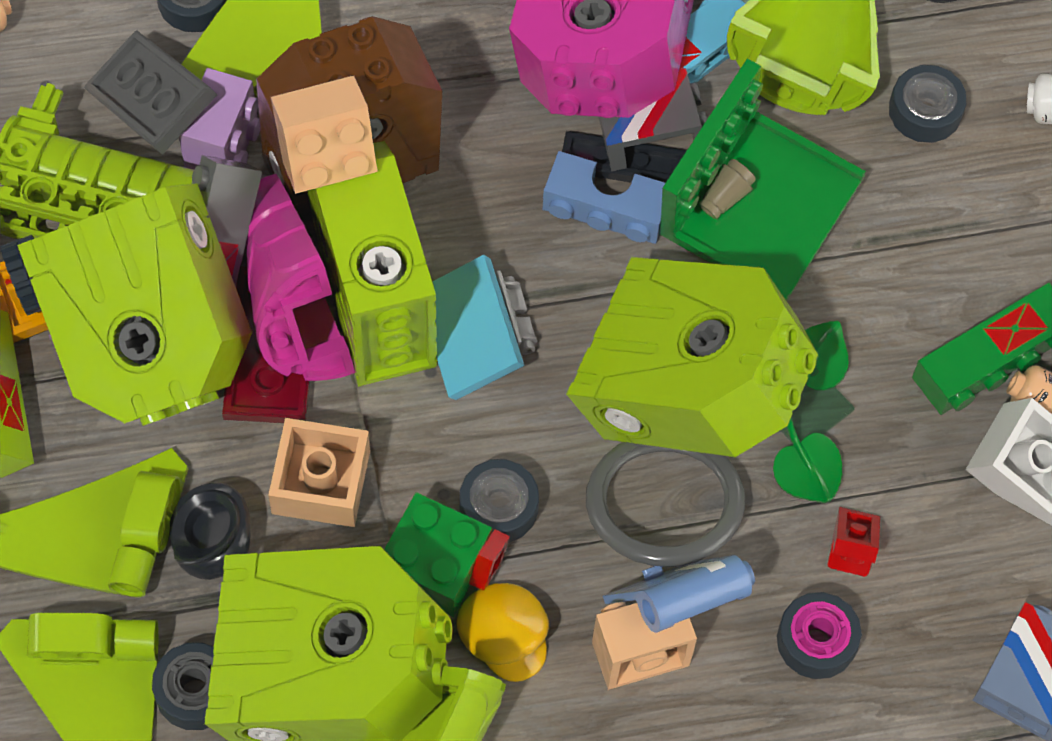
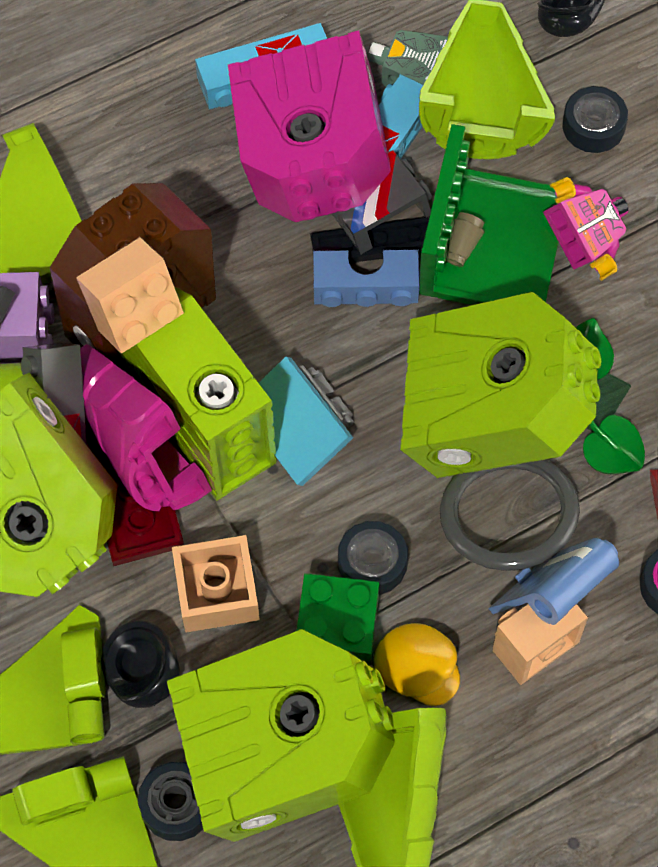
camera: 15 degrees left, 0 degrees up
(489, 559) = (384, 610): red tile -> none
(870, 216) = (587, 225): none -> dark pink torso

